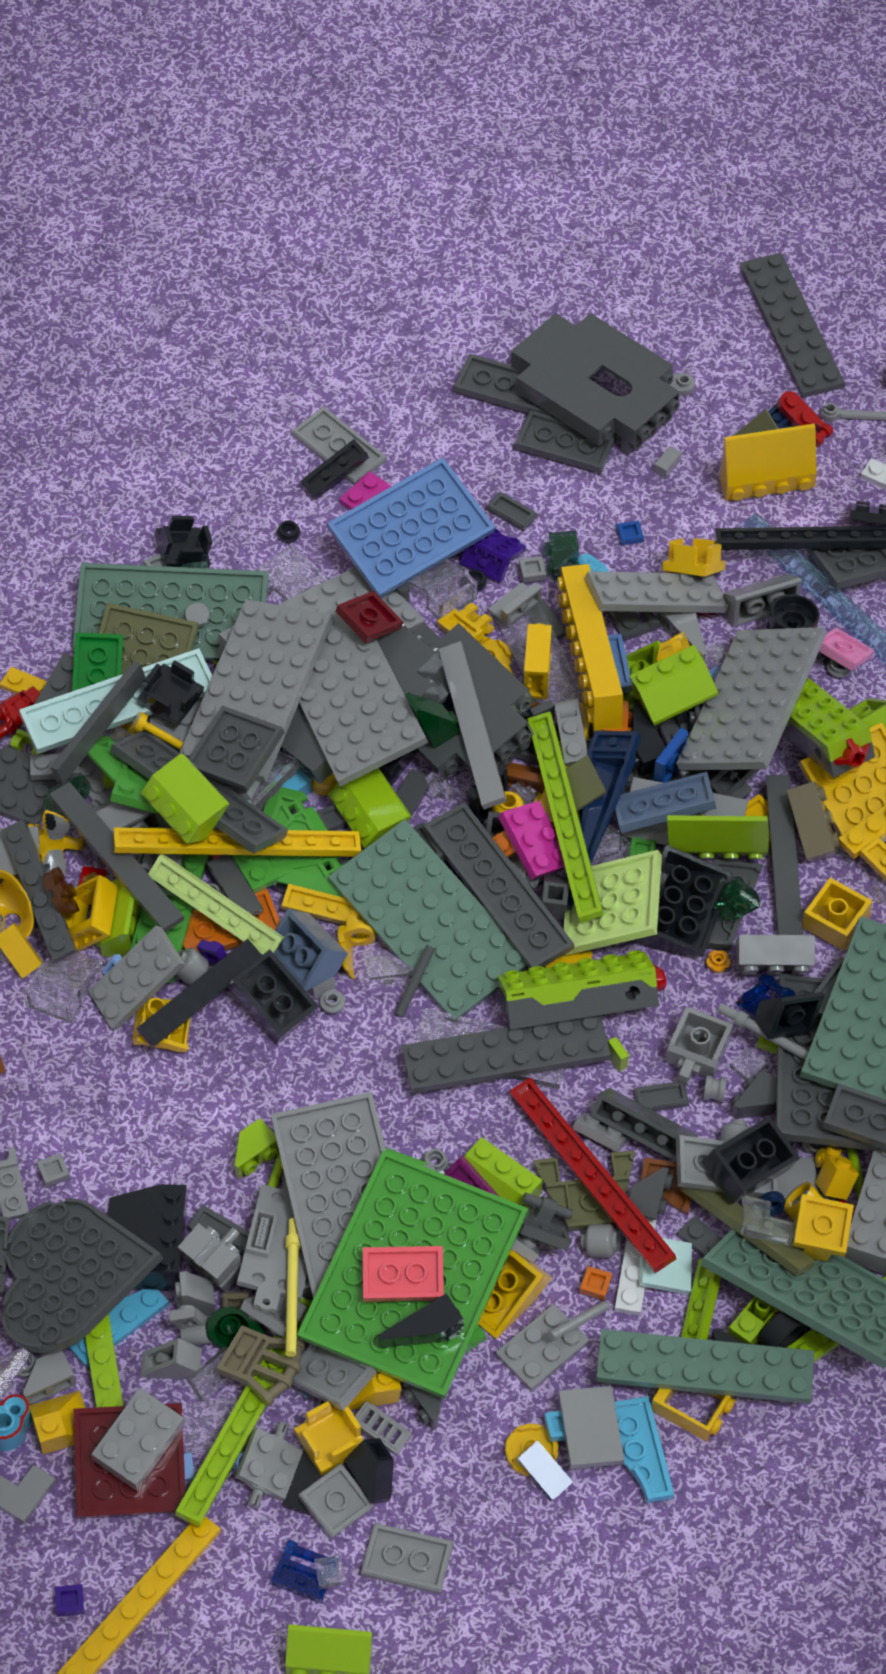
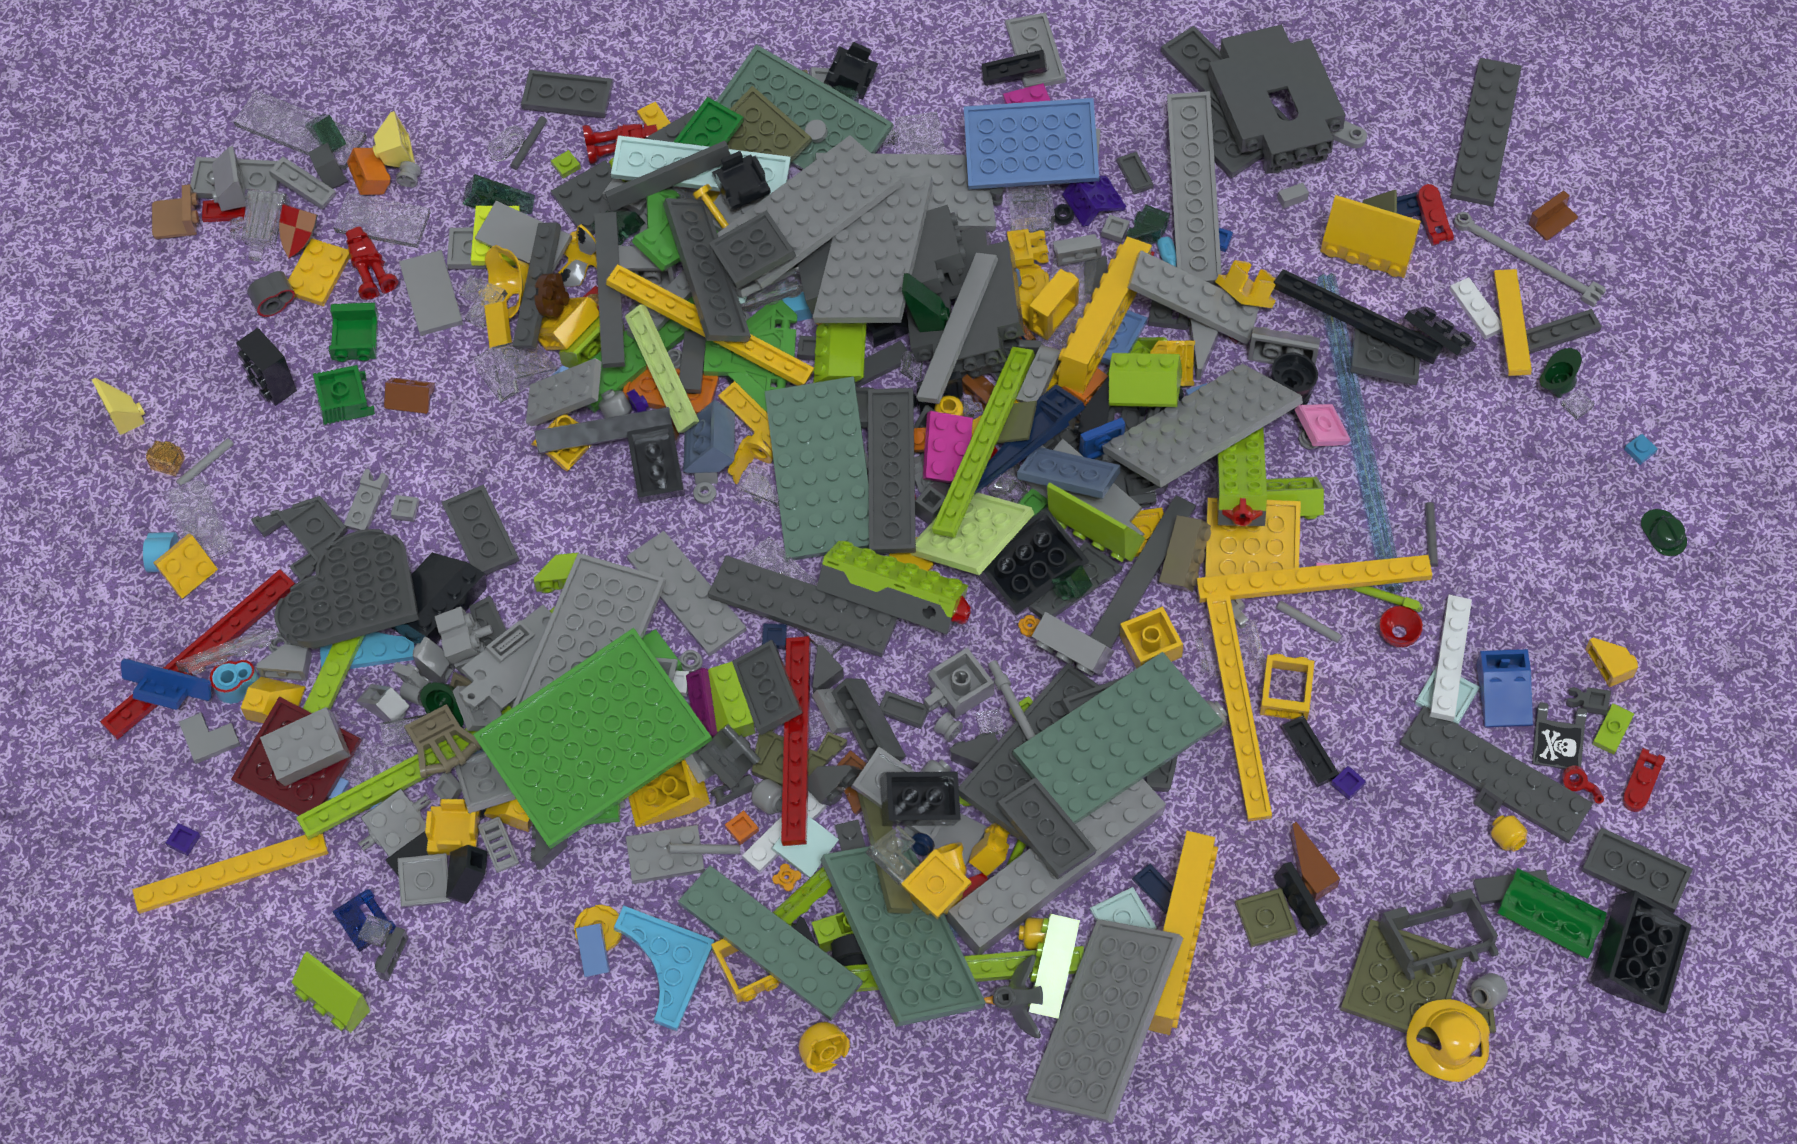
camera: 35 degrees right, 5 degrees up
(143, 1150) = (480, 530): none -> dark grey plate
(185, 799) = (680, 270): lime slope -> none
(288, 526) = (944, 95): black plate -> none
(292, 1244) = (495, 700): light yellow bar -> none
(295, 1404) = (447, 787): none -> light grey plate
(358, 1597) = (394, 946): none -> dark grey plate
(369, 616) = (926, 196): dark red plate -> none
(402, 1273) = (578, 732): coral plate -> none
(407, 1558) = (445, 956): light grey tile -> none
(415, 980) = (774, 510): dark grey bar -> none
(416, 1115) = (686, 594): none -> light grey plate
(428, 1325) = (571, 783): black slope -> none
(496, 1095) = (775, 632): none -> dark blue plate
(531, 1142) = (766, 687): none -> dark grey plate
(563, 1255) = (743, 787): none -> dark grey bar
(567, 1098) = (827, 670): none -> dark grey slope
(576, 493) = (1194, 185): none -> light grey plate
(590, 1427) = (648, 937): light grey tile -> none
(618, 1054) = (892, 656): lime tile -> none
(669, 1311) = (786, 884): none -> light orange plate
(715, 654) = (1212, 372): clear plate -> none
(750, 1000) = (1031, 677): clear blue plate -> none
(788, 1014) = (1037, 699): black slope -> none
(814, 1431) = (822, 1045): none -> yellow cylinder

